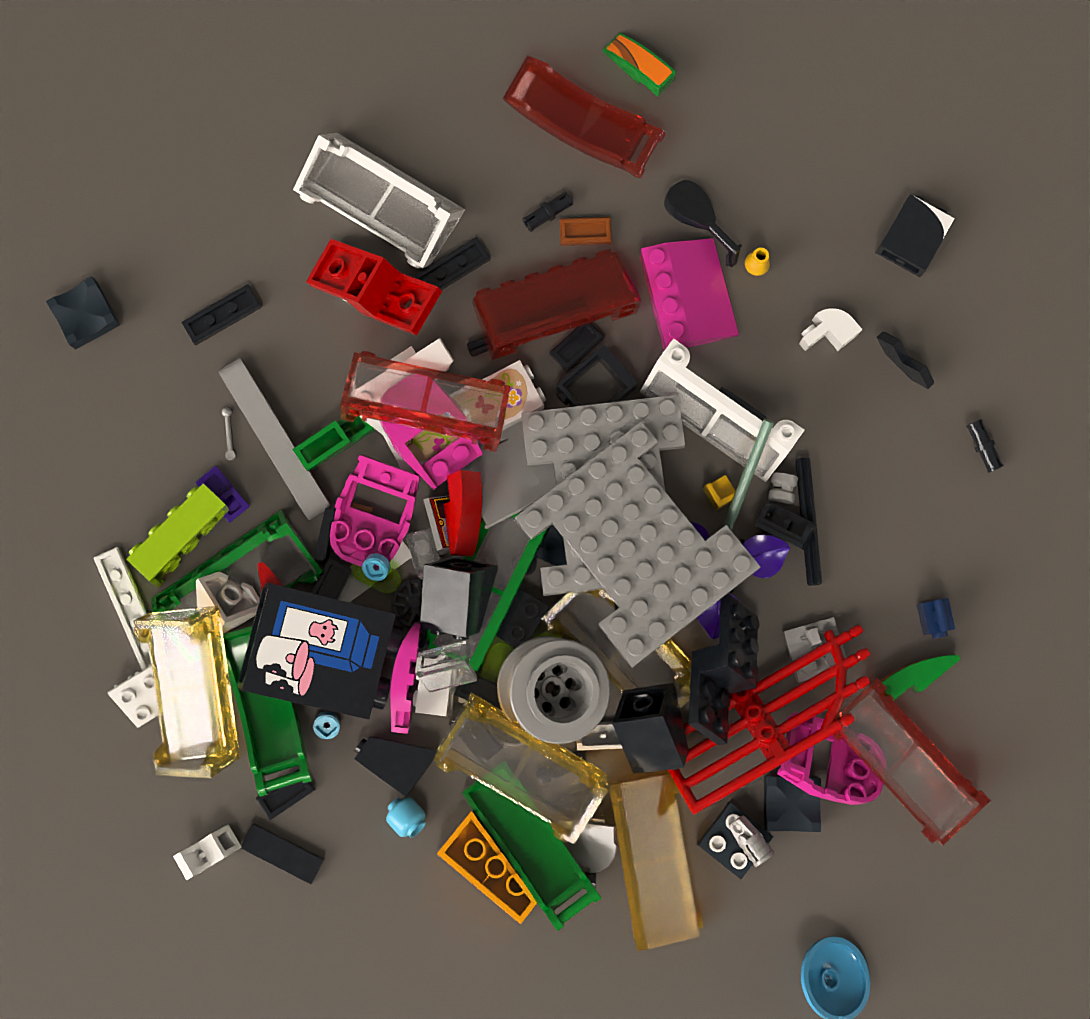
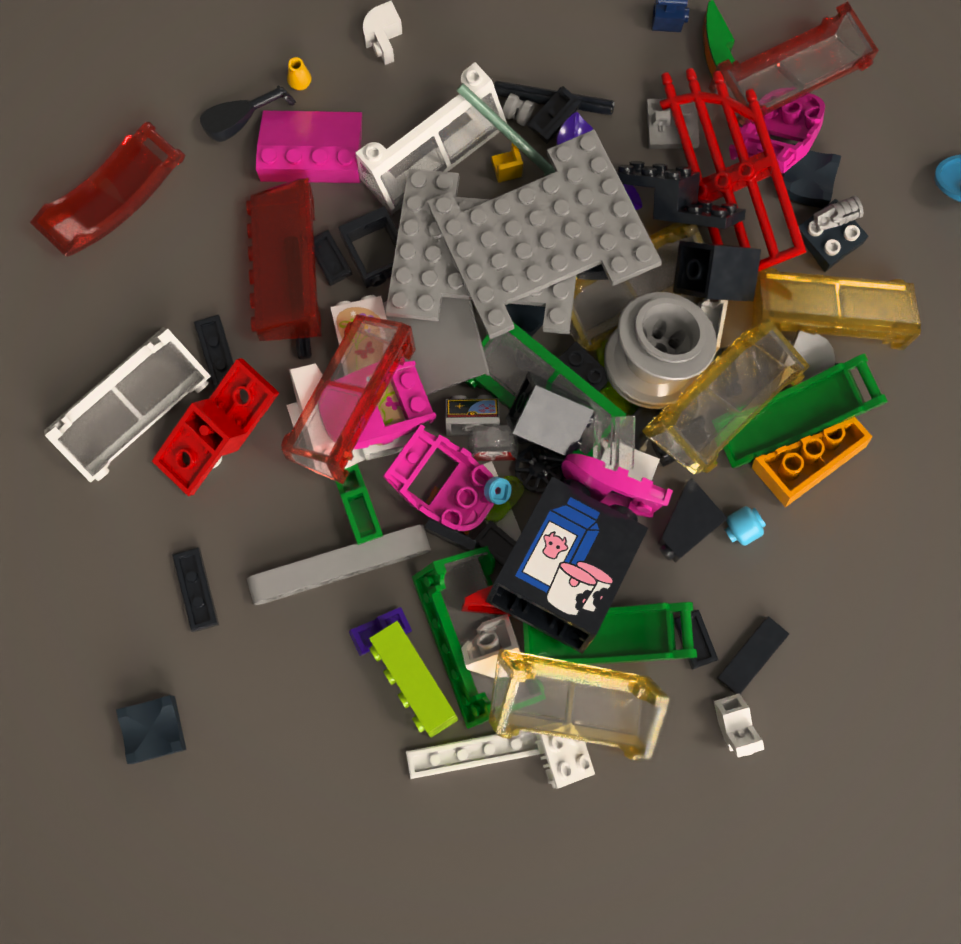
camera: 80 degrees left, 5 degrees down
(230, 454) = (342, 614): light grey hinge -> none
(326, 725) = (637, 581): medium azure tile -> none
(463, 512) = (466, 391): red slope -> none
(547, 211) = (190, 249): black pin -> none
(585, 231) = (220, 222): dark orange tile -> none
(640, 63) = (71, 128): slope -> none

